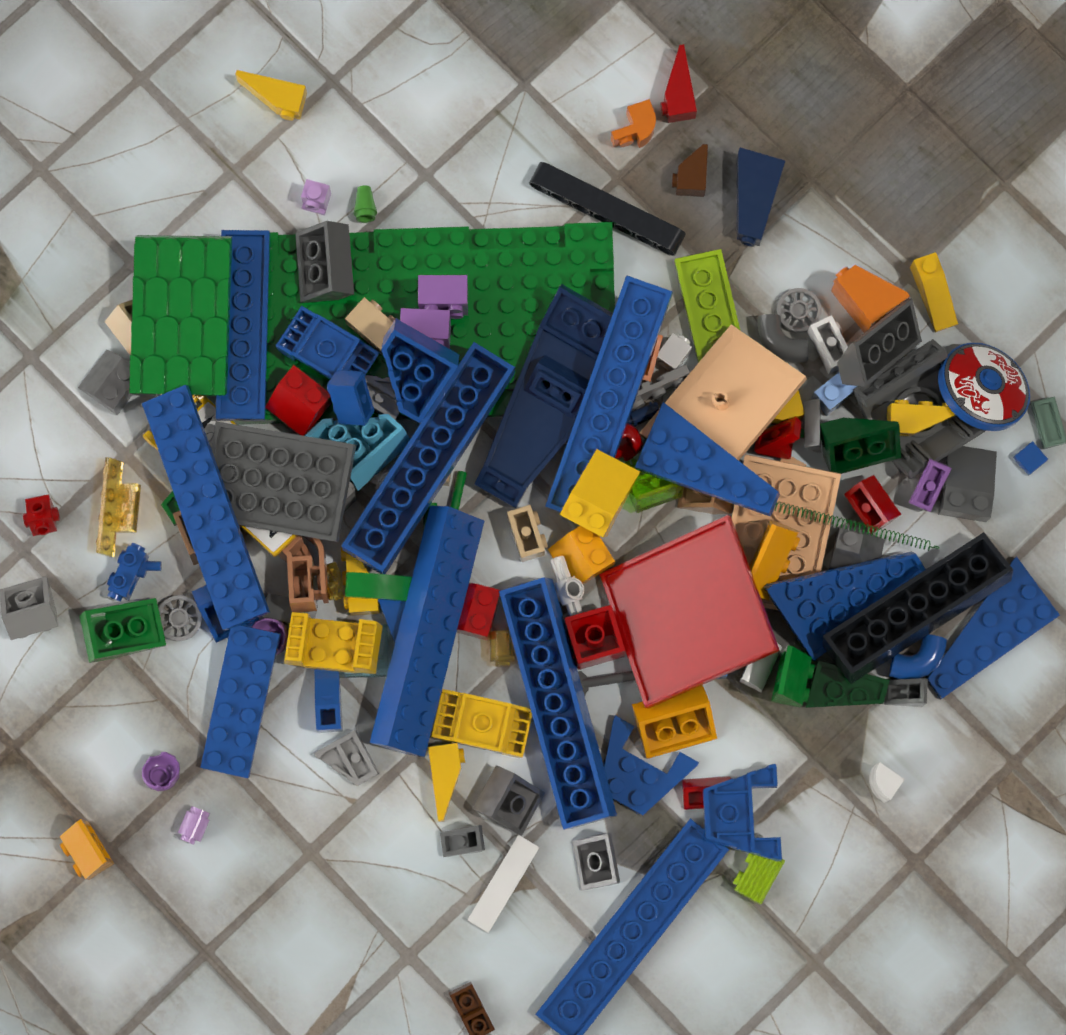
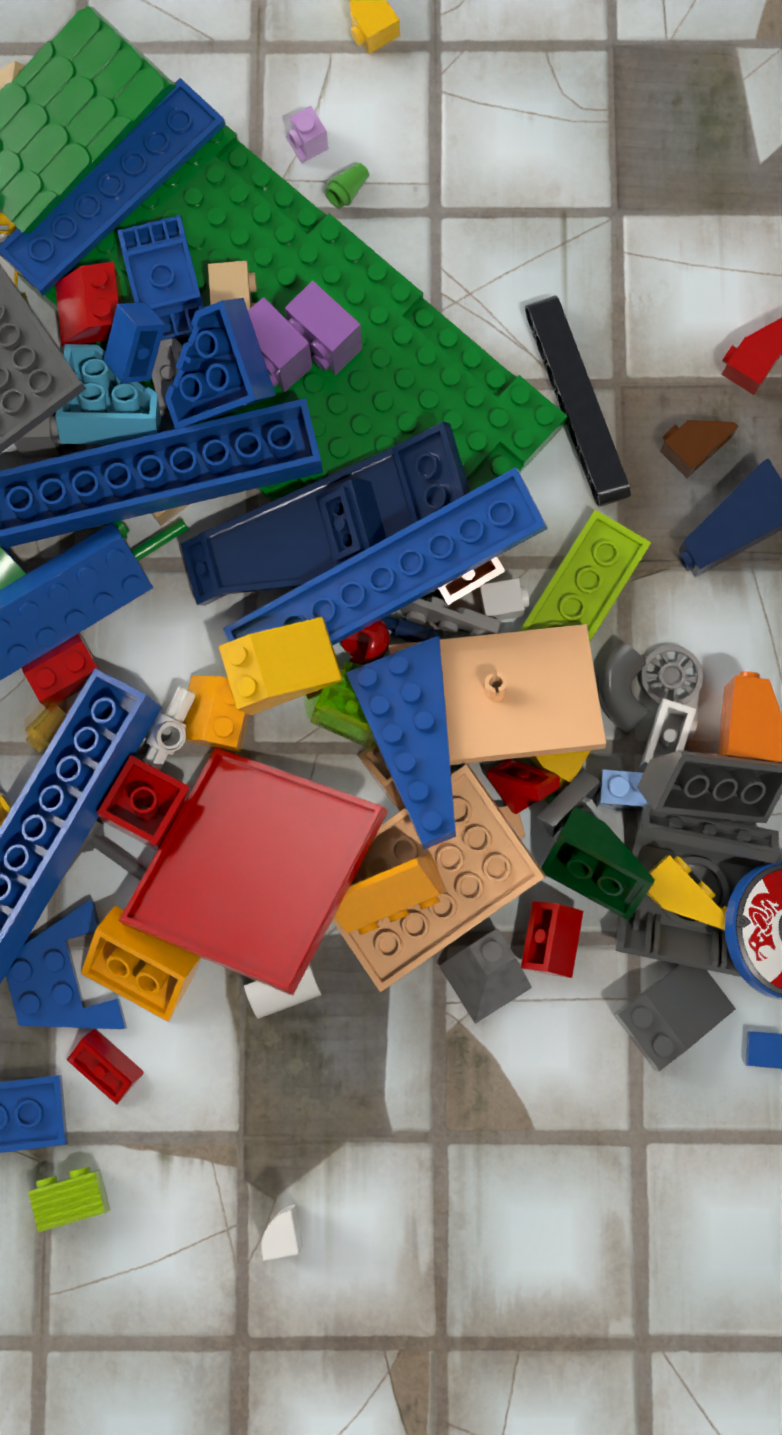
camera: 50 degrees right, 0 degrees up
(324, 262) = (247, 197): dark grey slope -> none
(526, 533) = (181, 639): tan brick -> none
(641, 126) = (687, 354): orange brick -> none
(730, 814) = (98, 1110): blue wing -> none
(792, 677) = (294, 1036): green slope -> none
(830, 597) = (415, 1002): blue wing -> none
(833, 689) = (342, 1094): dark green wing -> none
(860, 525) = (483, 906): green piece -> none
(907, 692) = (398, 1162): dark grey slope -> none
(917, 608) = (493, 1089): black brick -> none
(922, 662) = (445, 1149): blue cylinder -> none
(930, 485) = (630, 976): medium lavender slope -> none
(994, 629) = (567, 1188): blue wing -> none

